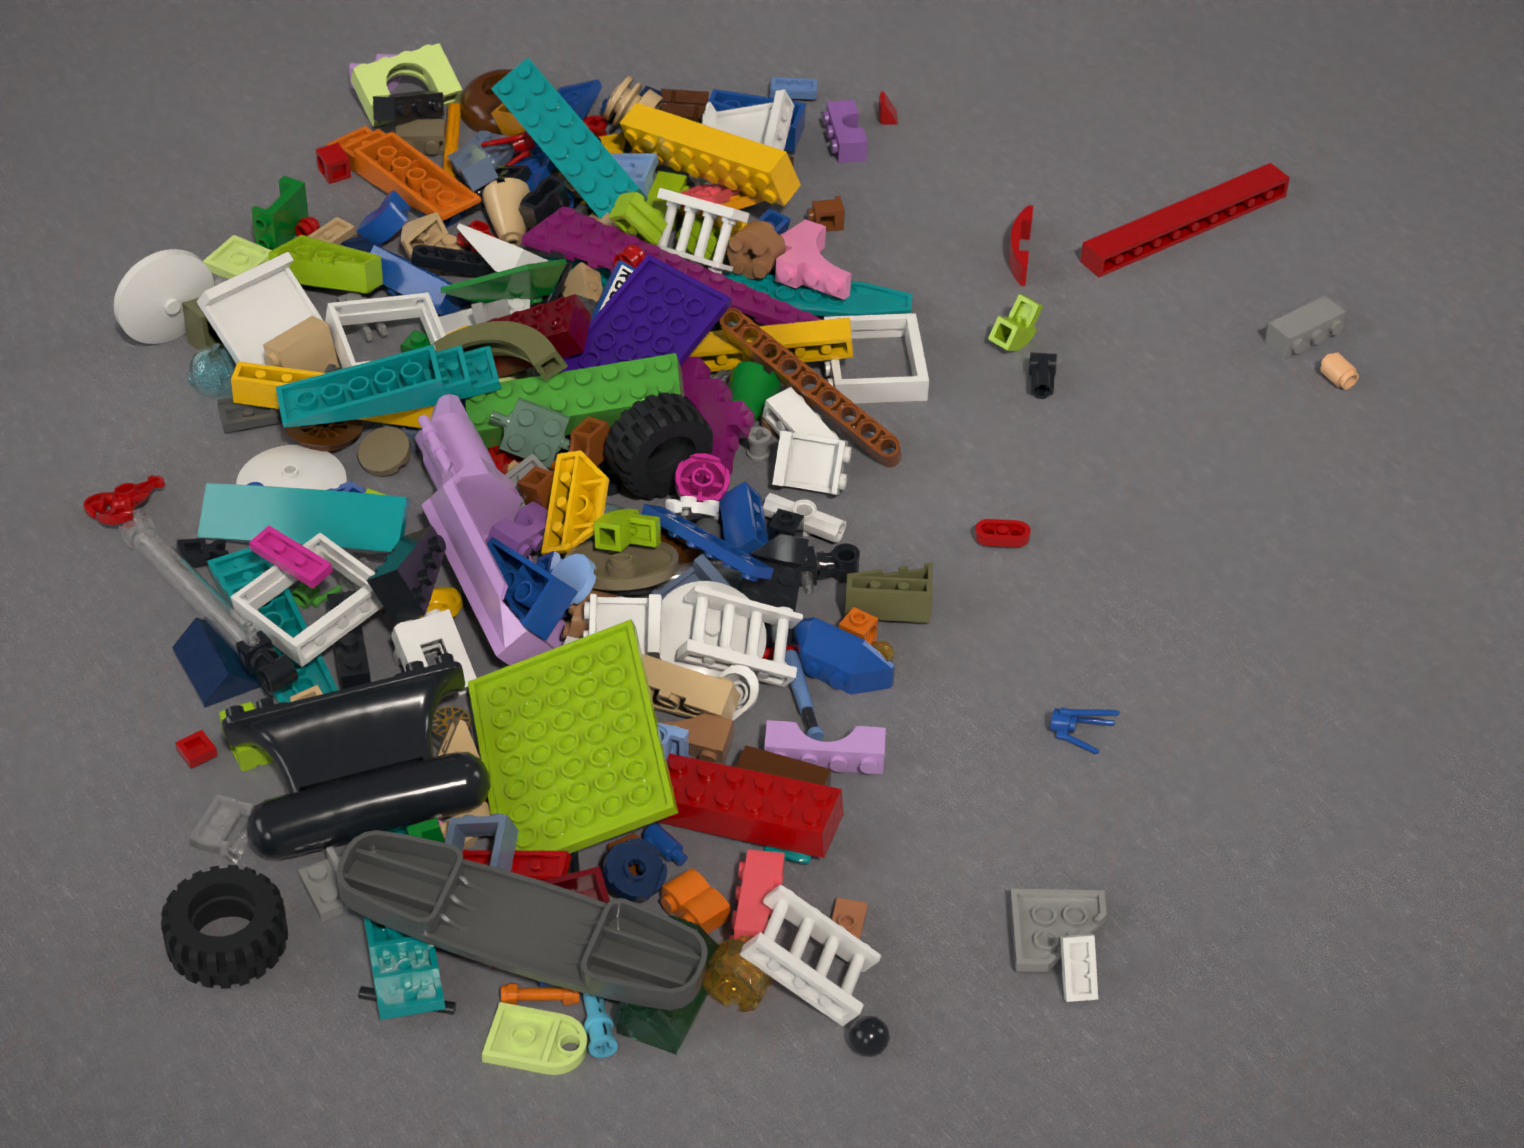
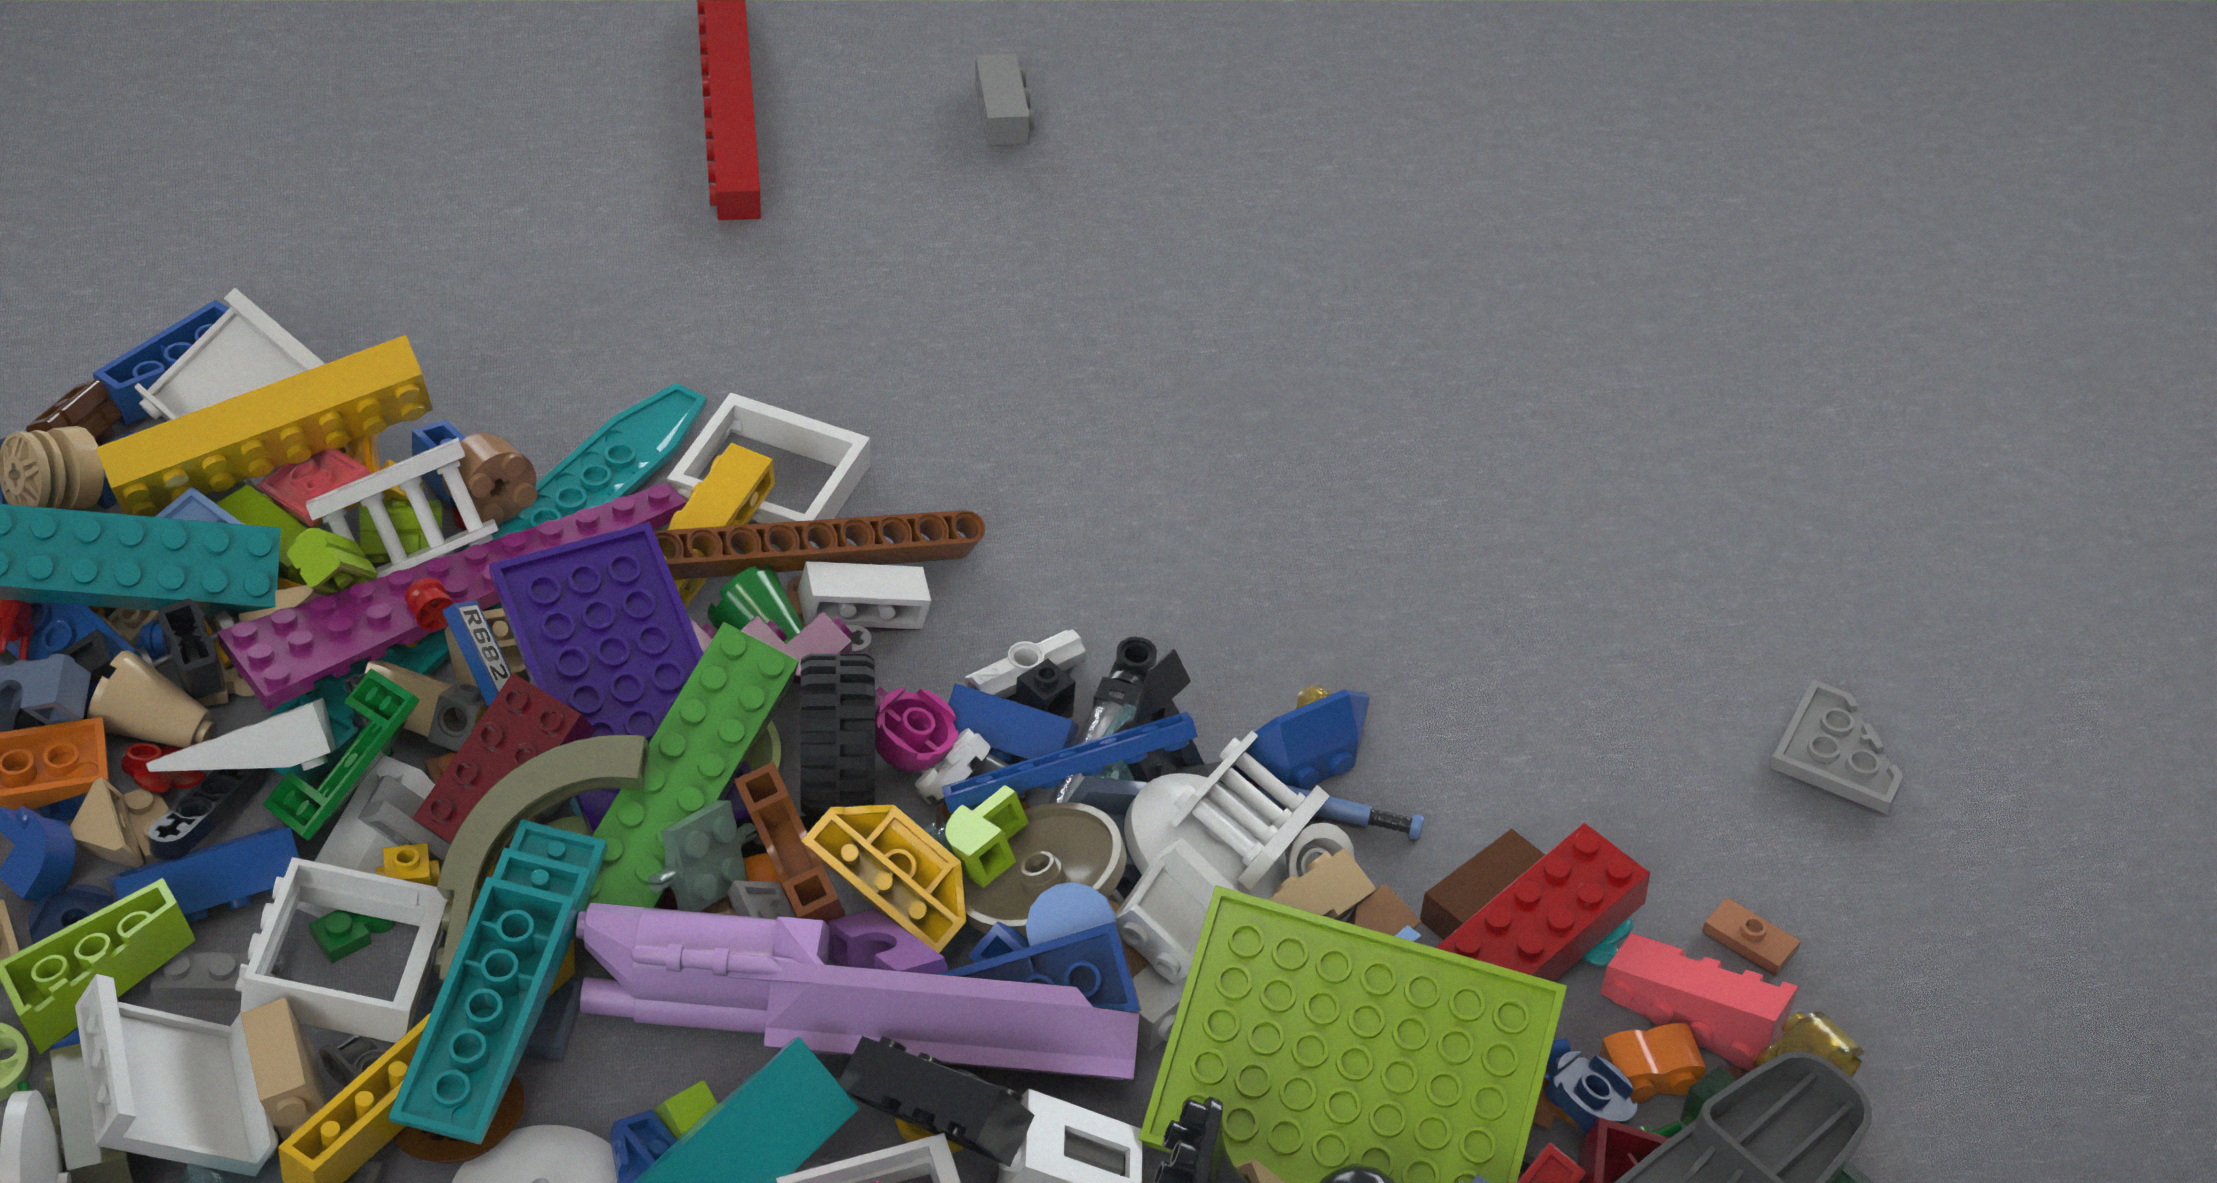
camera: 65 degrees left, 0 degrees up
(384, 451) = (565, 1060): dark tan tile -> none
(795, 87) = (133, 307): medium blue plate -> none
(798, 976) = (1828, 972): white fence -> none
(806, 266) = (555, 446): bright pink arch -> none
(811, 462) = (945, 610): white panel -> none
(828, 213) = (446, 388): dark orange brick -> none
(842, 129) = (306, 308): medium lavender arch -> none
(857, 753) = (1475, 794): lavender arch -> none
(860, 624) = (1270, 698): orange brick -> none
(869, 1036) = (1943, 985): black piece -> none
(887, 111) = (268, 244): red slope -> none
(892, 595) = (1234, 642): olive wedge -> none
(1002, 533) = (1173, 503): red plate -> none
(1018, 258) = (688, 267): red slope -> none
(1018, 328) = (814, 319): lime brick -> none
(1042, 371) = (906, 335): black piece -> none
(1065, 721) = (1527, 590): blue plant -> none
(1079, 967) = (1927, 749): white tile -> none
(1339, 370) = (1094, 111): light nougat brick -> none

